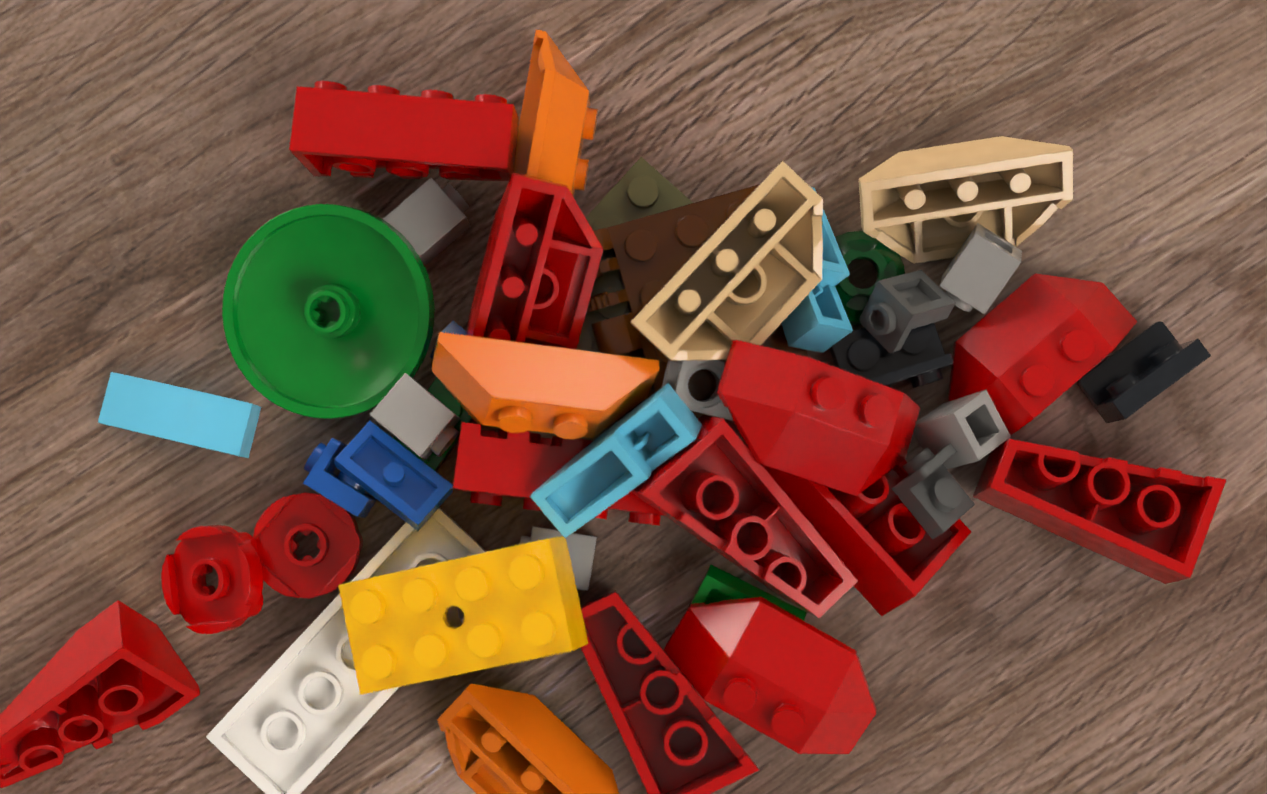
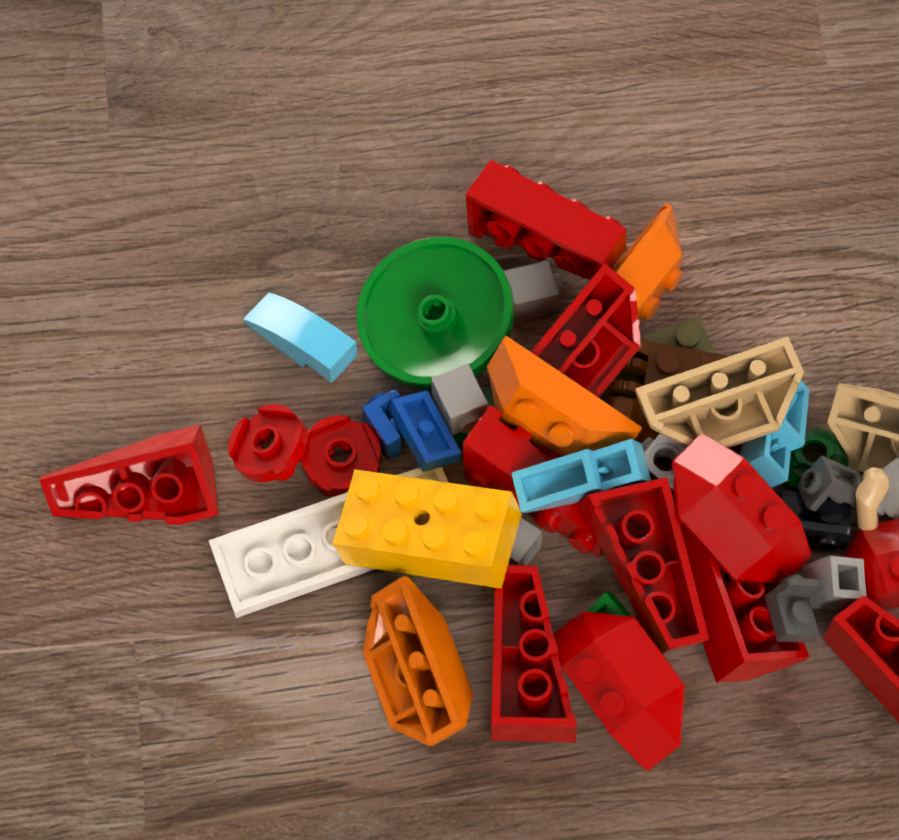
camera: 35 degrees right, 20 degrees down
(958, 304) = (869, 496): none -> tan arm

